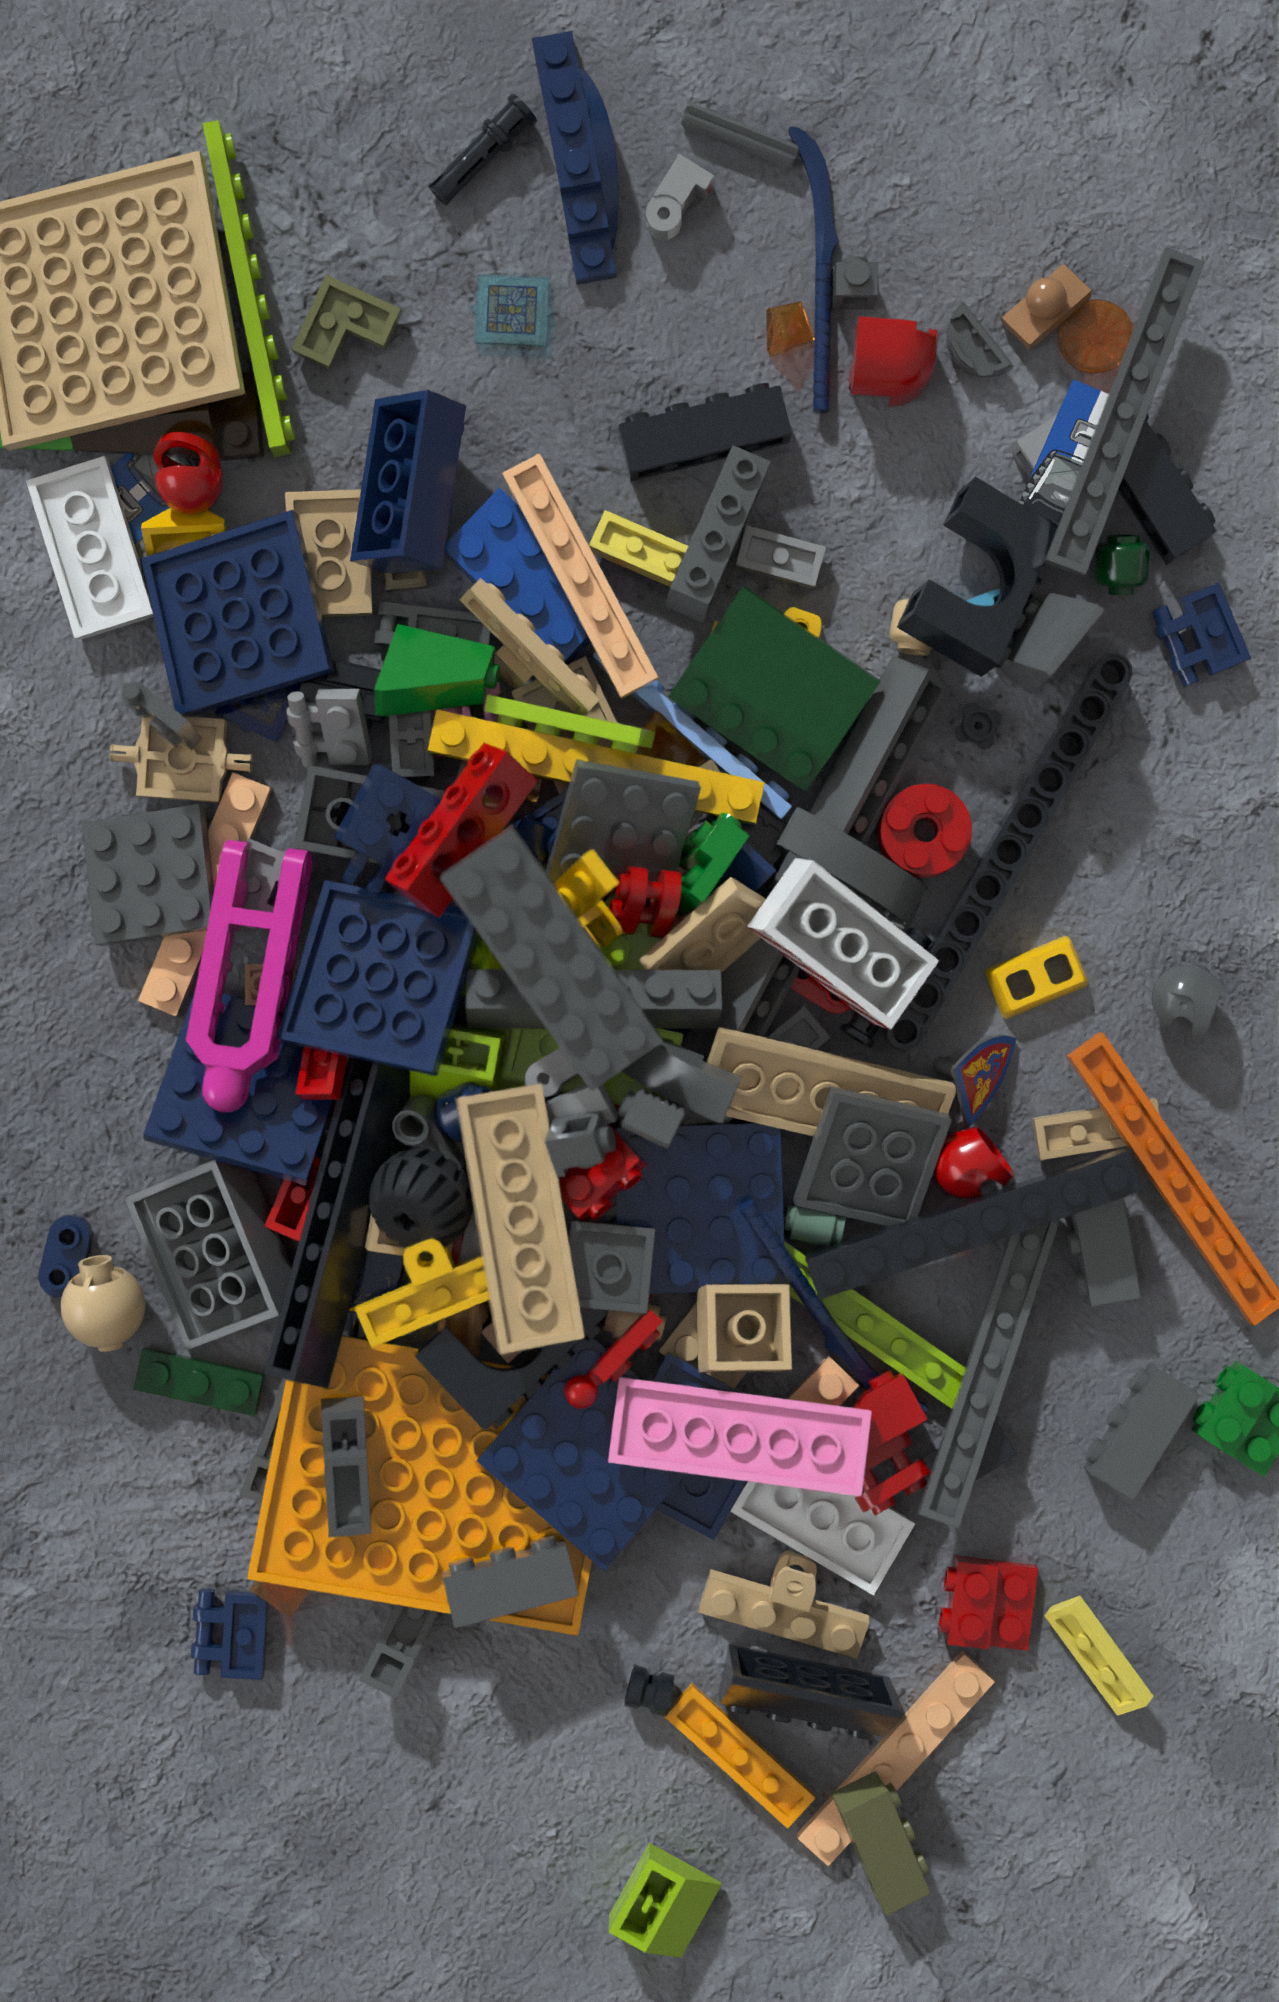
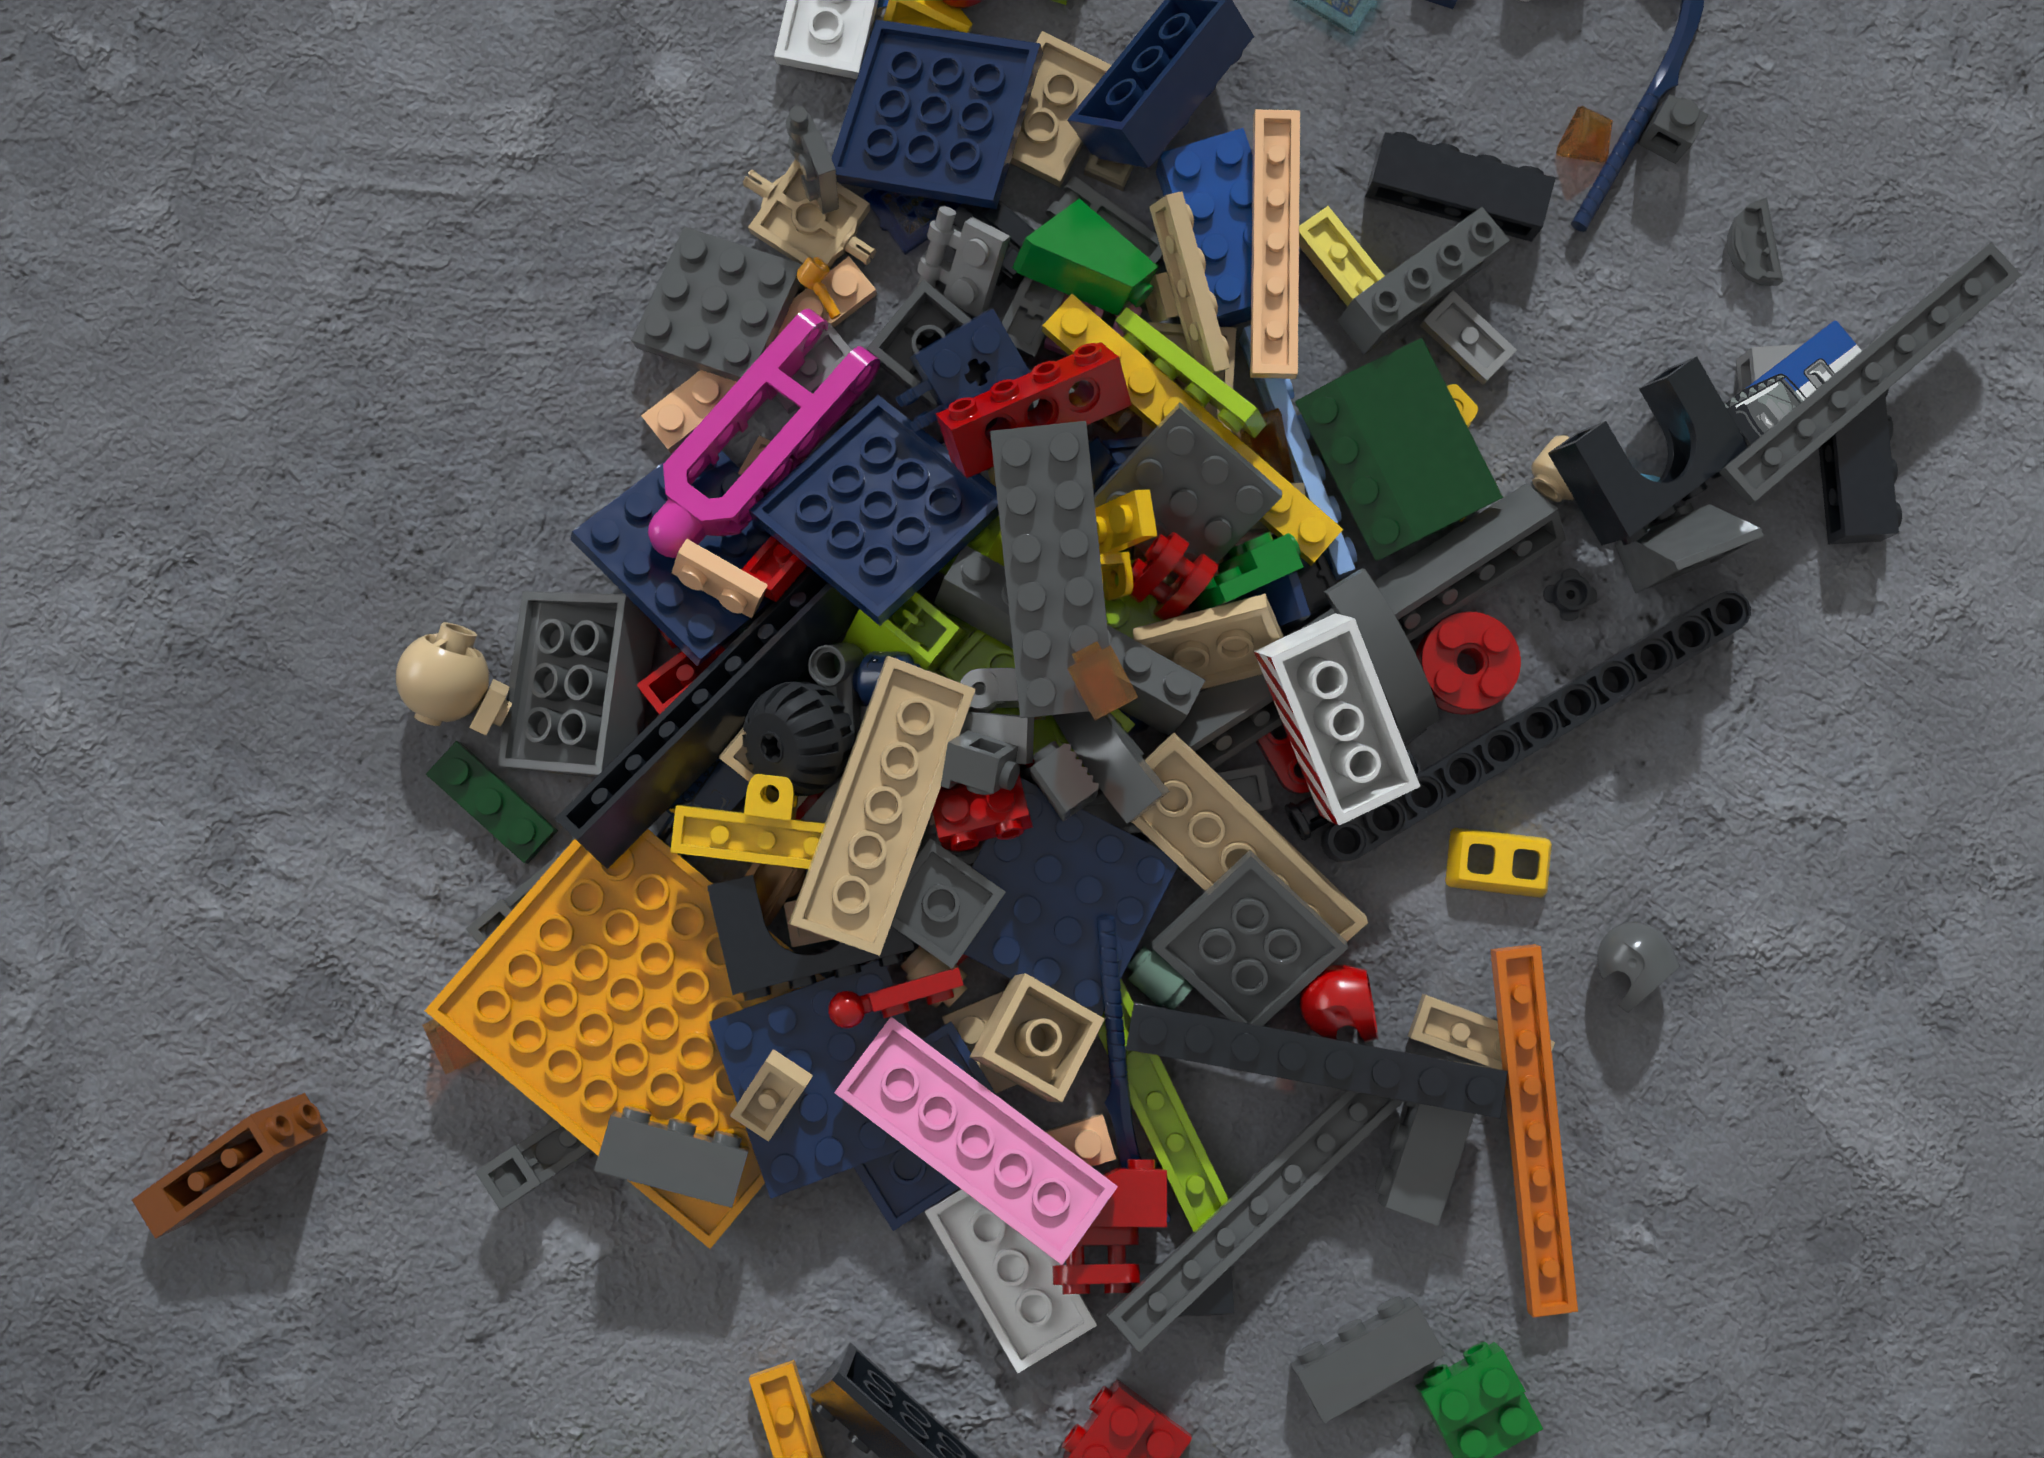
camera: 30 degrees right, 5 degrees down
(63, 1255) = (433, 611): dark blue plate -> none
(157, 1307) = (492, 708): none -> tan plate
(159, 1781) = (229, 1164): none -> dark orange slope
(212, 810) = (811, 276): none -> light orange hand
(243, 1634) = (391, 1069): dark blue plate -> none
(274, 1107) = (722, 580): none -> light nougat plate
(346, 1466) = (580, 955): dark grey slope -> none
(560, 1492) = (771, 1095): none -> tan slope
(639, 1029) = (1101, 679): none -> clear orange brick
(649, 1690) = (748, 1344): black wheel -> none
(785, 1607) = (926, 1337): tan plate -> none
(892, 359) = (1674, 210): red brick -> none
(978, 1073) = (1395, 920): shield -> none
(1046, 306) = (1841, 245): medium nougat tile -> none
(1095, 336) = (1872, 296): clear orange wheel -> none
(1122, 563) = (1789, 517): dark green head -> none
(1212, 629) = (1843, 625): dark blue plate -> none

